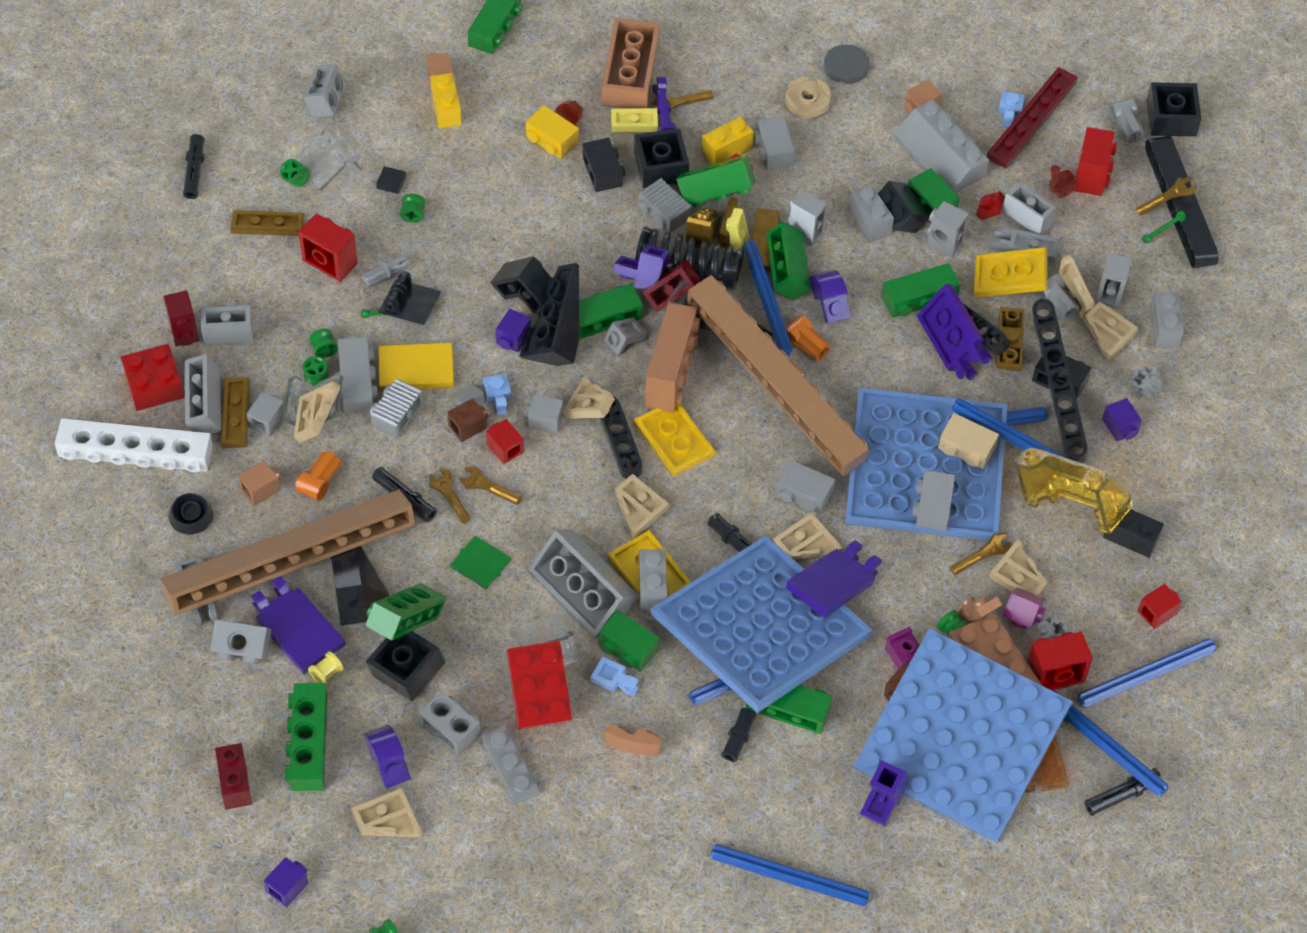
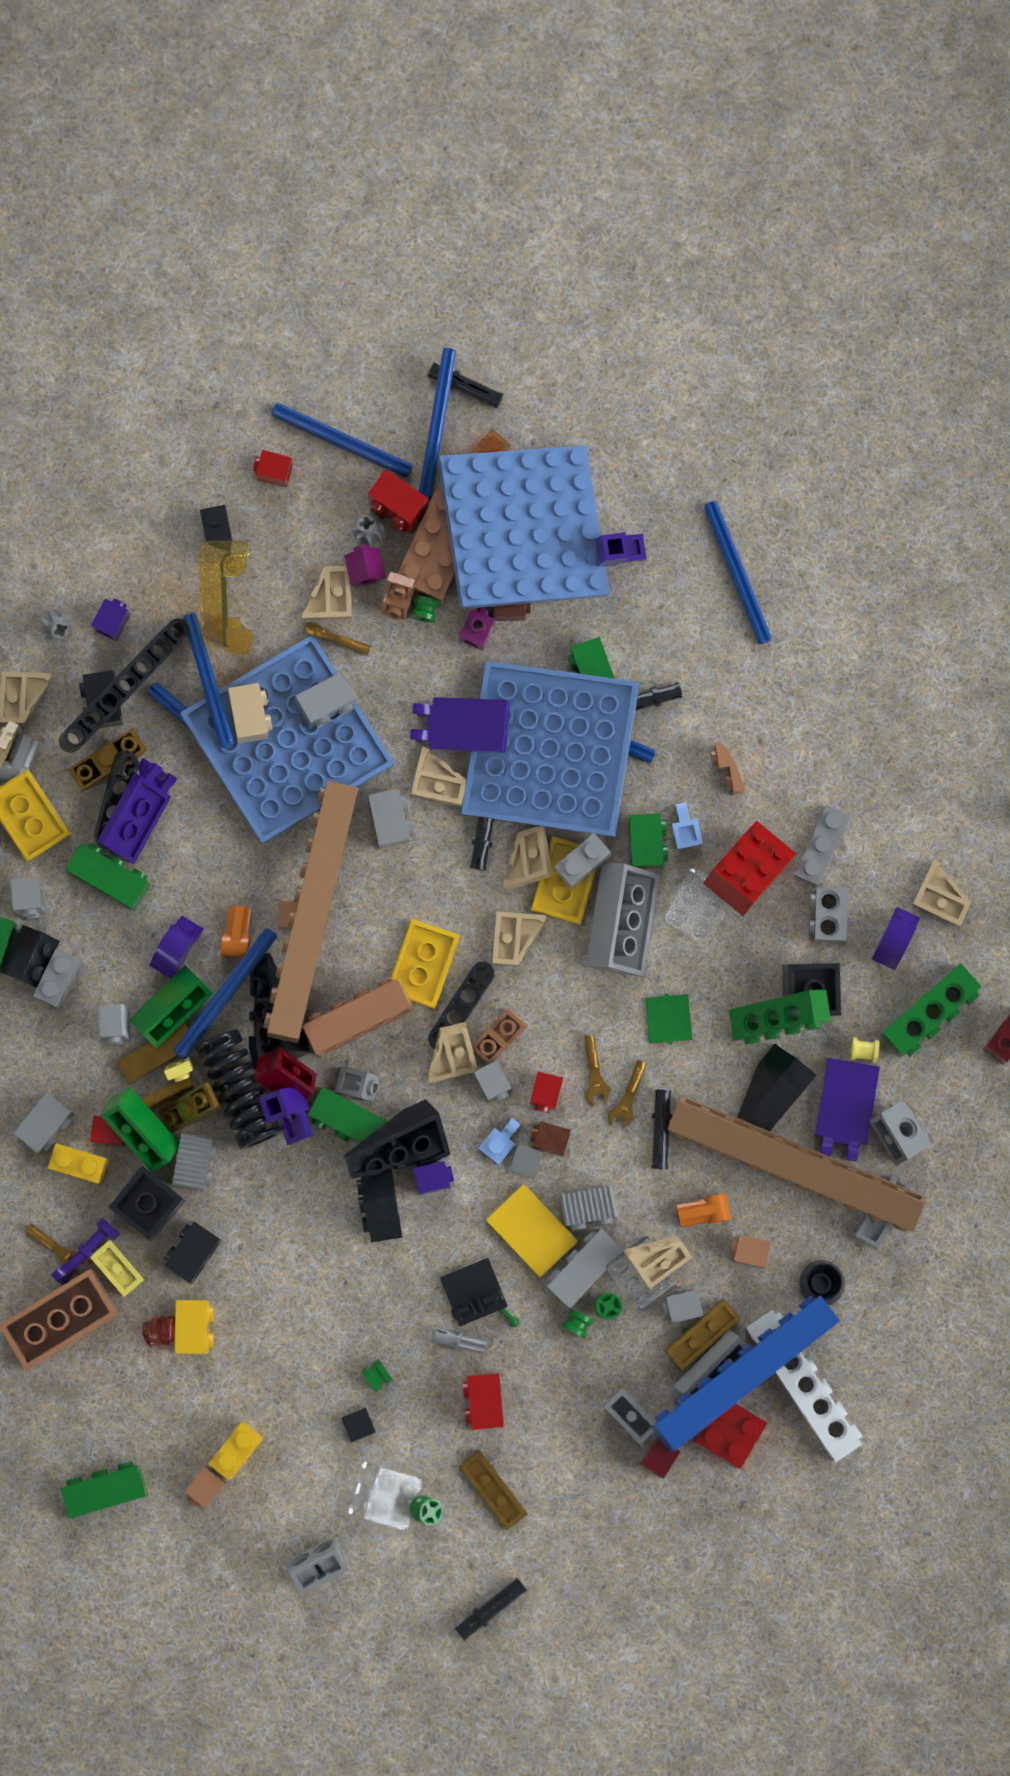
camera: 125 degrees left, 25 degrees up
(177, 397) = (744, 1374): none -> blue brick
(574, 445) = (499, 1036): none -> nougat slope
(688, 555) = (530, 858): none -> tan wing

